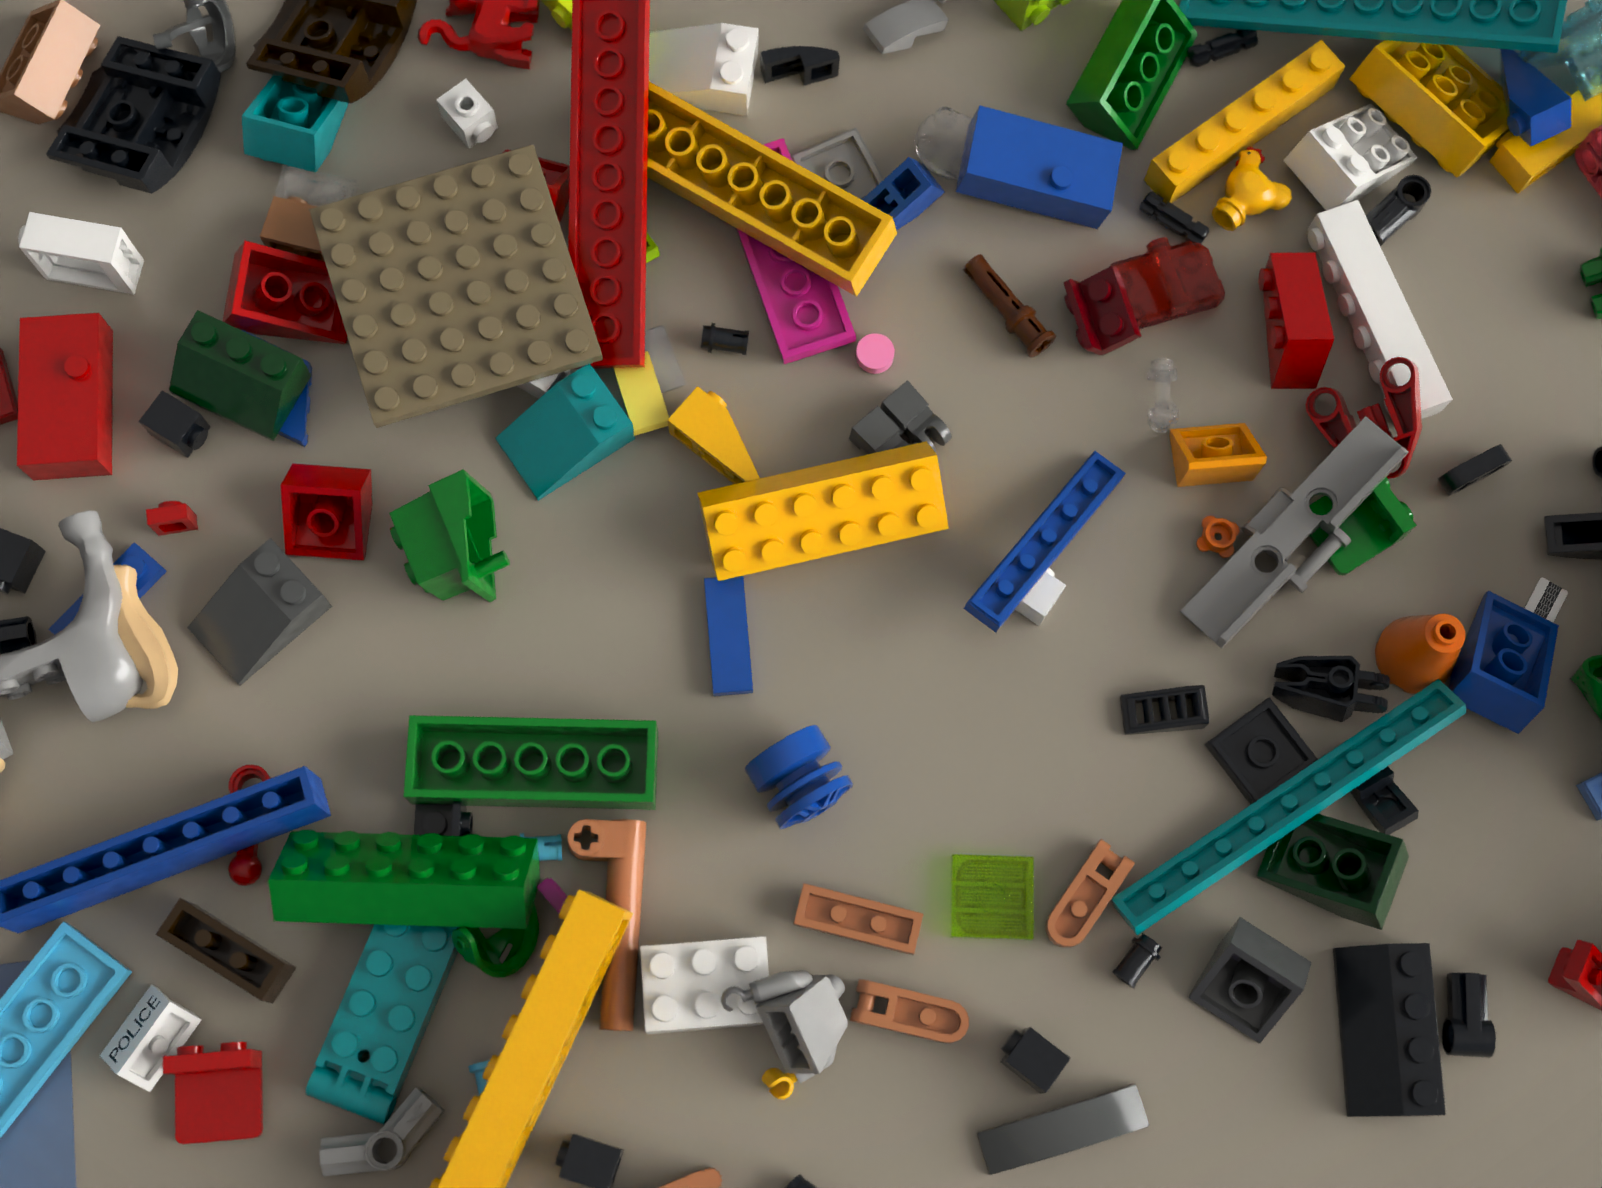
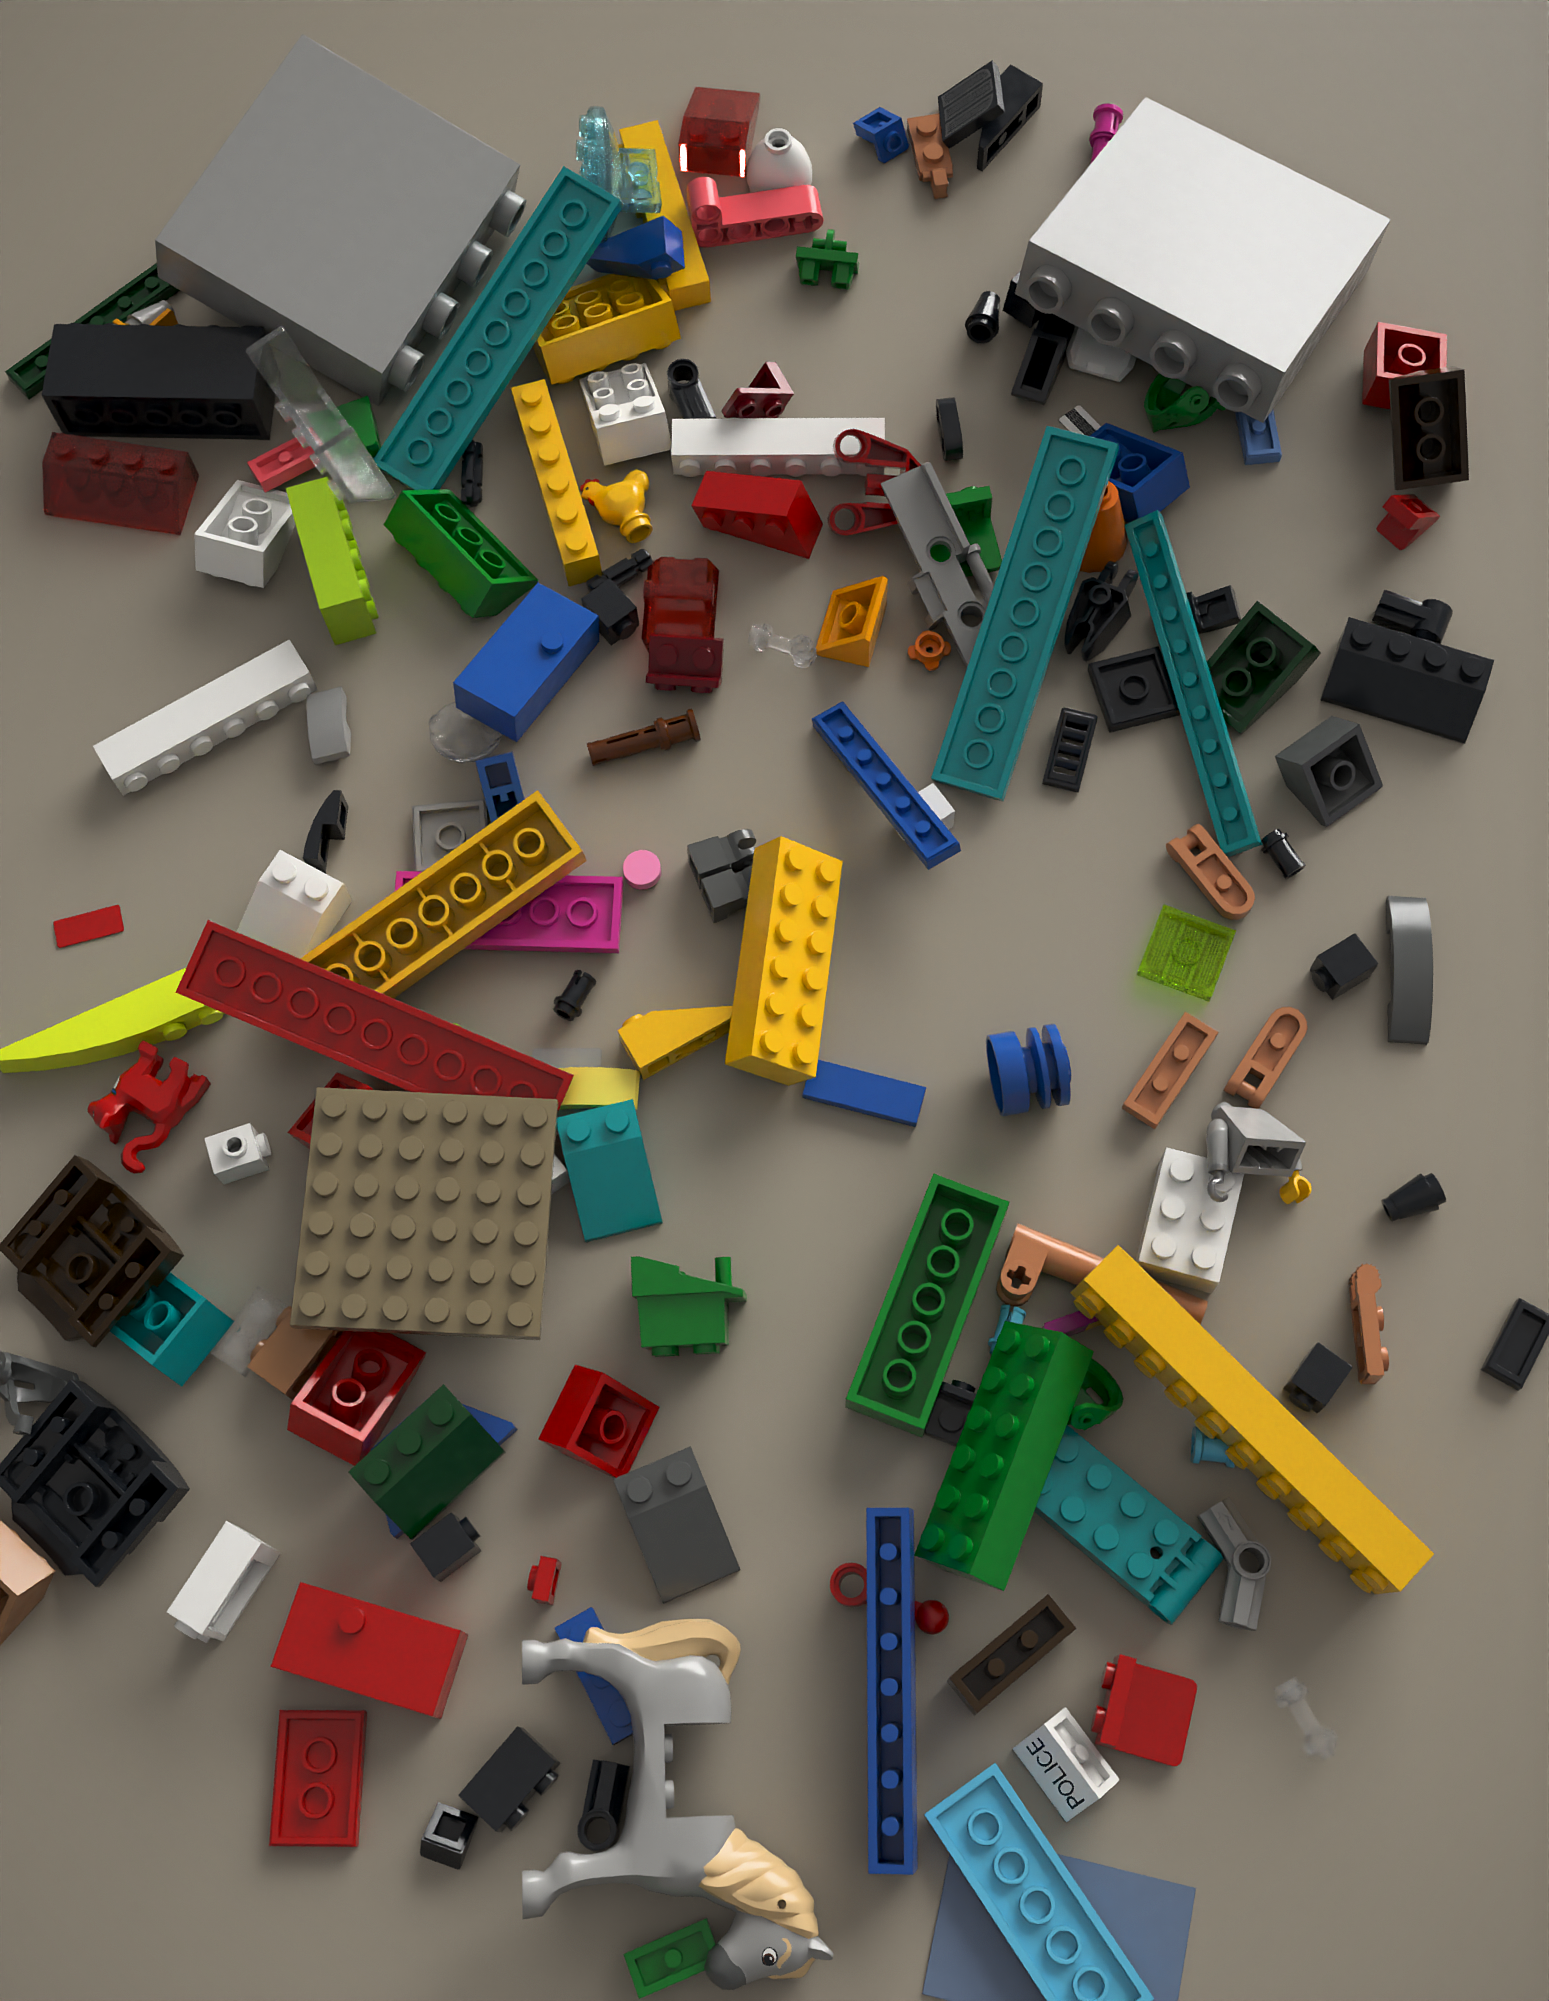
camera: 60 degrees left, 5 degrees down
(1127, 224) = (616, 612): none -> black brick
(1288, 606) = (1025, 612): none -> teal plate
(1421, 284) = (764, 397): none -> dark red bracket

